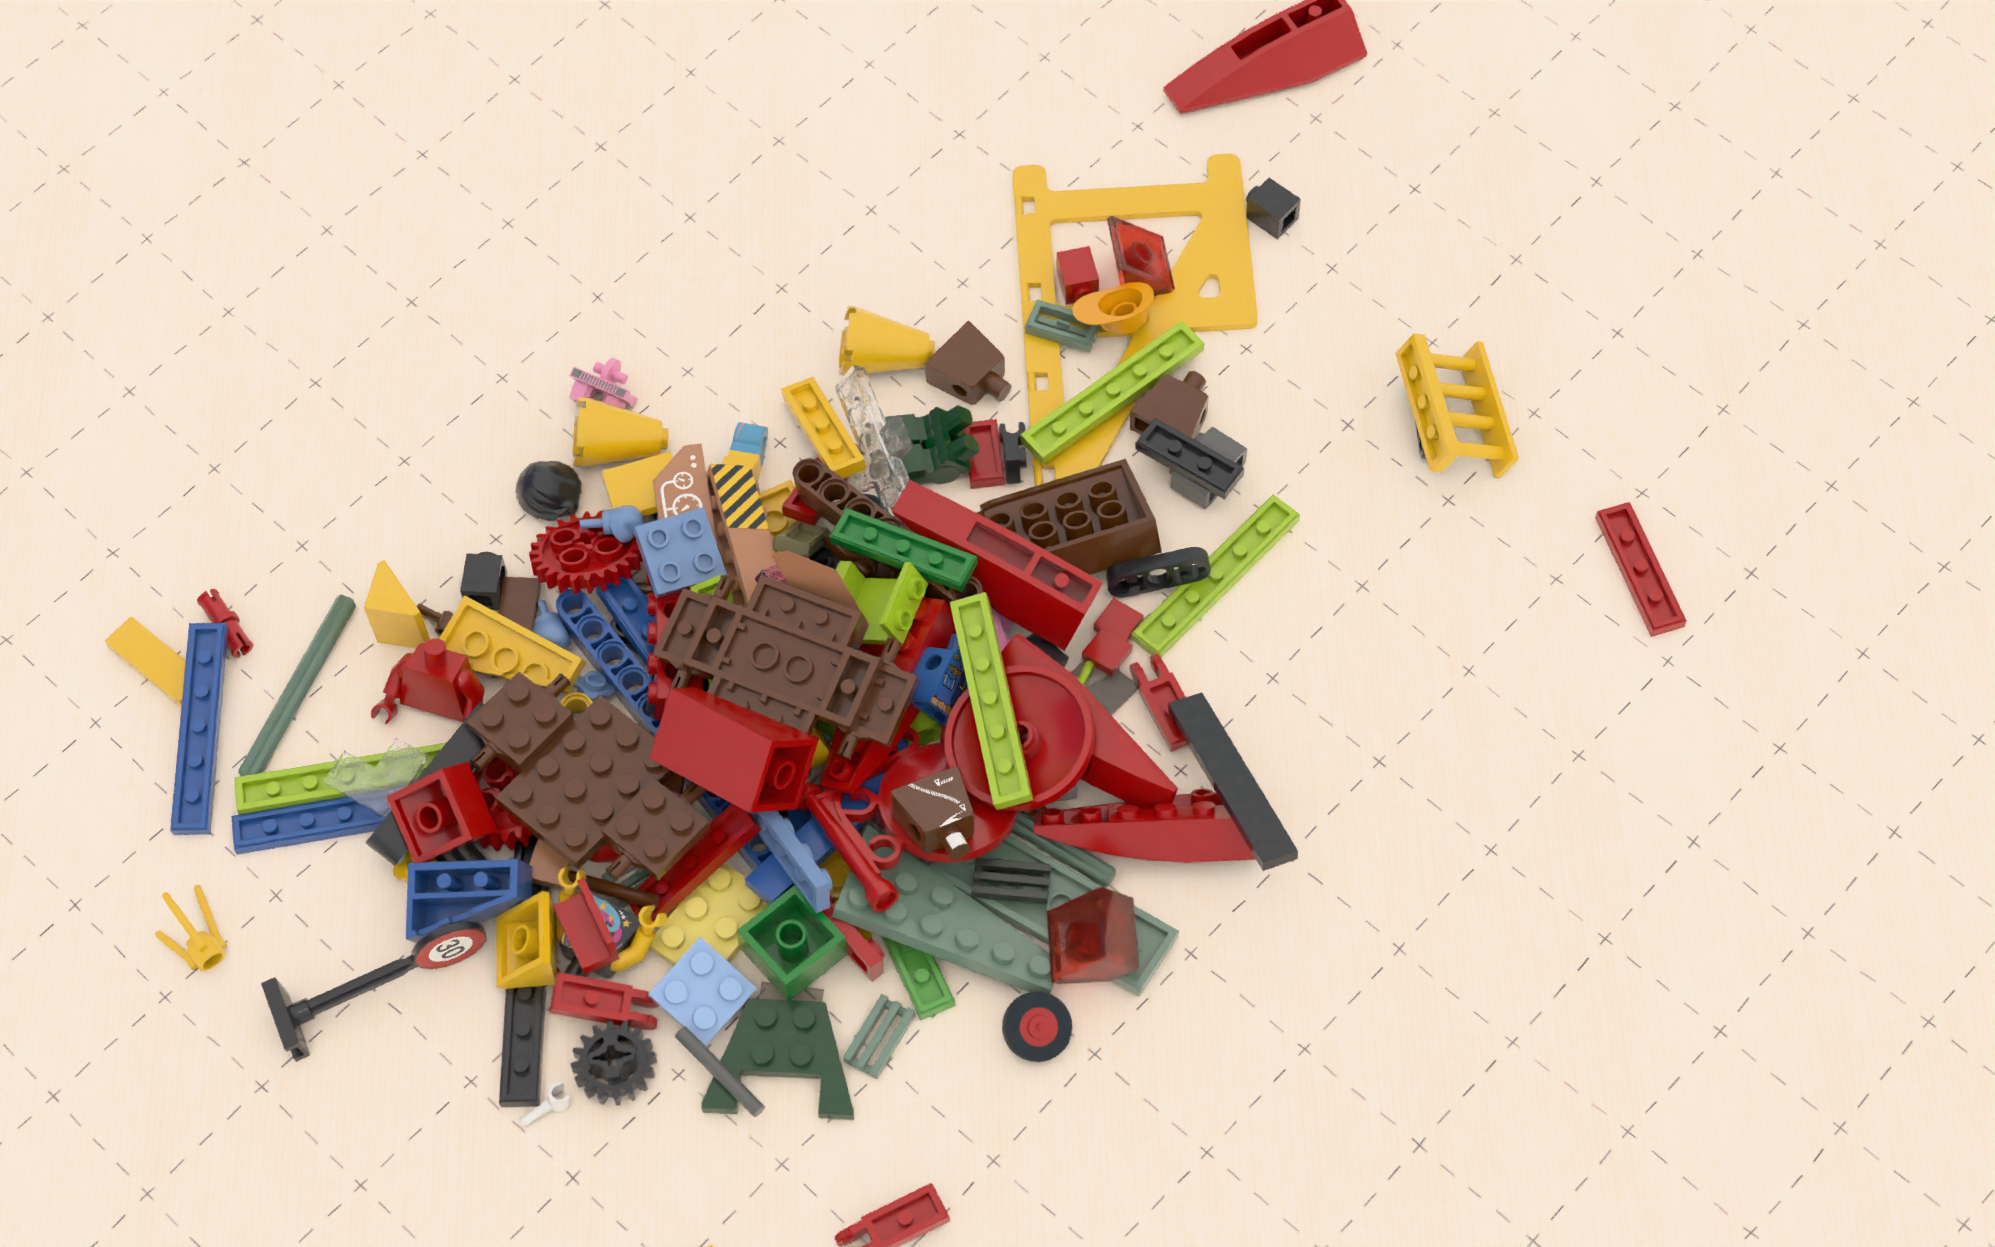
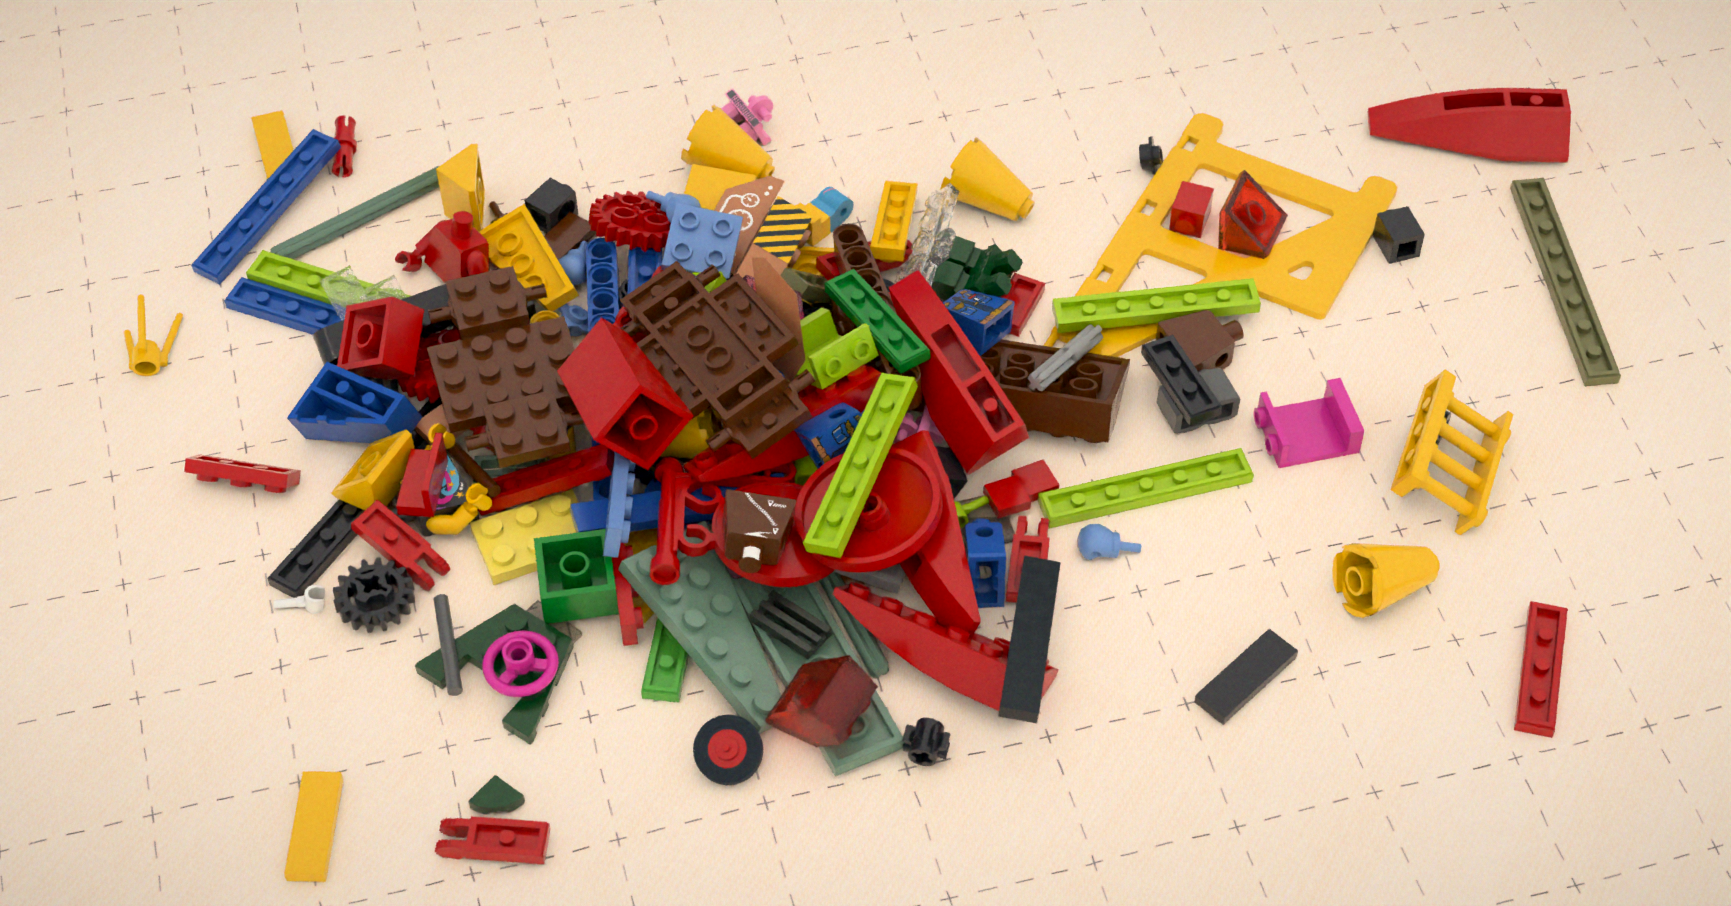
camera: 30 degrees right, 10 degrees down
(394, 1014) = (242, 473): none -> red plate
(434, 951) = (303, 436): black piece -> none
(548, 490) = (650, 167): black hair -> none
(702, 991) = (481, 578): light blue plate -> none
(802, 1039) = (514, 647): none -> dark pink piece
(864, 1186) = (496, 797): none -> dark green tile
(894, 1009) = (594, 685): sand green tile -> none
(968, 367) = (1048, 233): reddish brown torso -> none
(970, 485) = (981, 317): none -> blue torso
(1004, 237) = (1150, 155): none -> black plate
(1013, 456) = (1037, 313): black plate -> none
(1060, 330) = (1147, 243): sand green tile -> none
(1077, 490) = (1065, 357): none -> light grey axle
(1116, 309) = (1202, 246): light orange piece -> none
(1134, 585) = (1108, 451): black beam -> none
(1138, 719) = (986, 547): none -> blue torso
(1198, 922) = (926, 741): none -> black gear
(1215, 650) = (1100, 541): none -> medium blue piece
(1317, 440) = (1310, 428): none -> dark pink panel
(1414, 709) = (1246, 676): none -> black tile
(1436, 180) = (1565, 283): none -> olive tile
(1469, 557) = (1381, 574): none -> yellow cone

